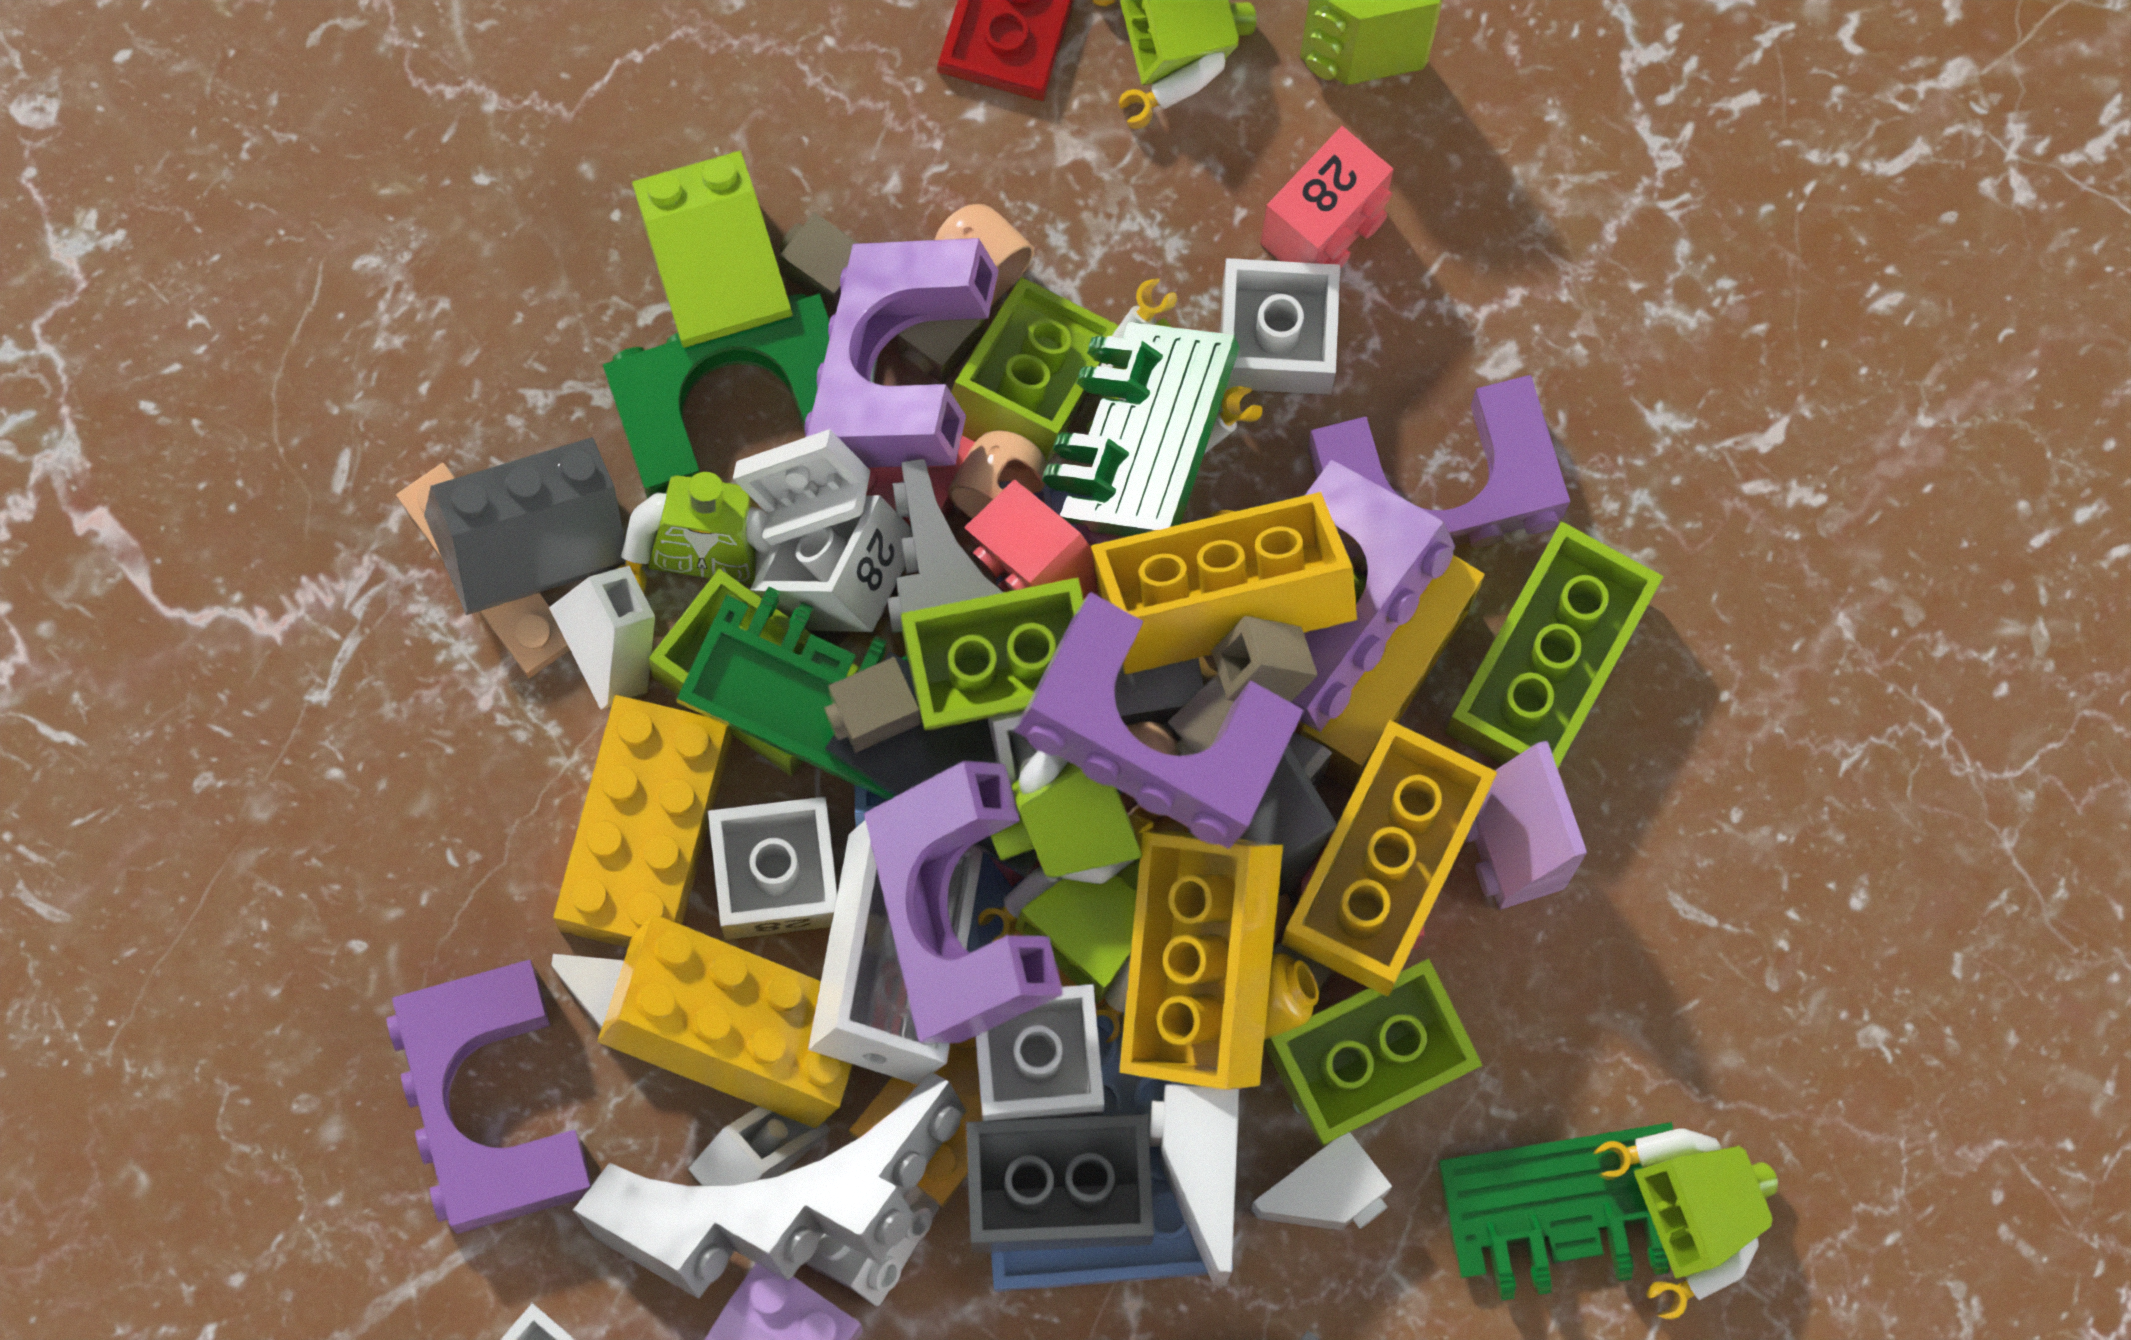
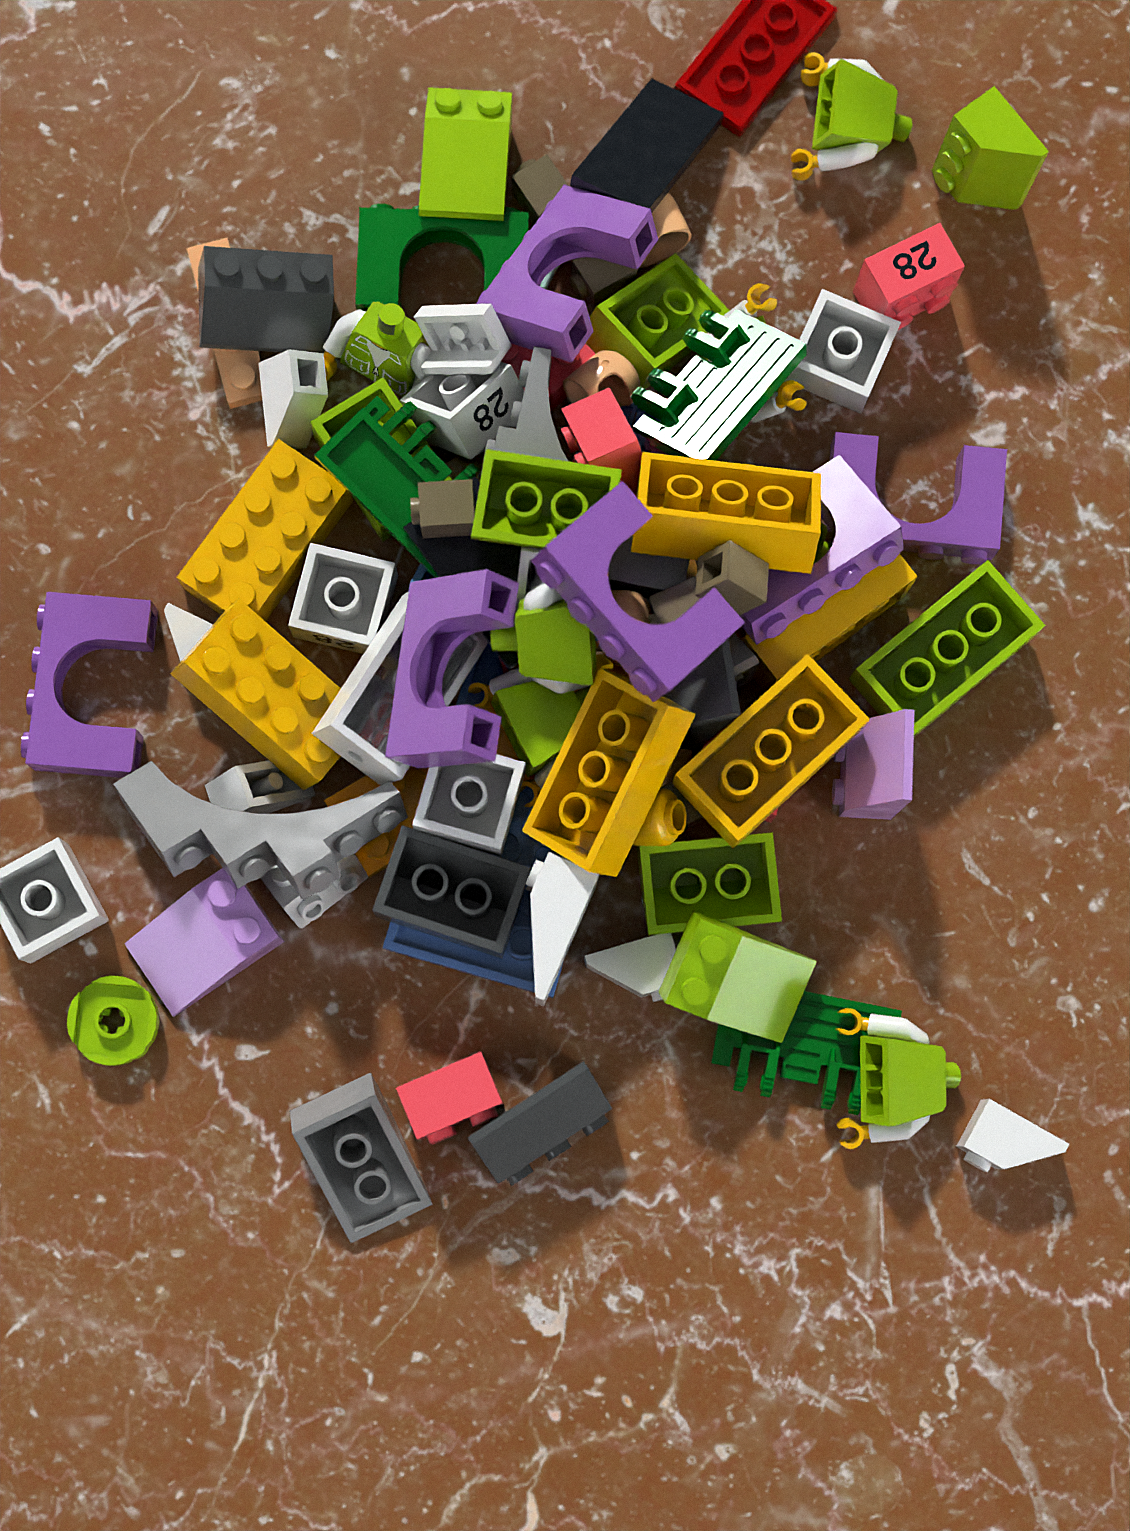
camera: 20 degrees right, 5 degrees up
(938, 157) = (648, 146): none -> black tile
(1453, 1157) = (736, 978): none -> lime slope
(1860, 1232) = (1004, 1139): none -> white slope

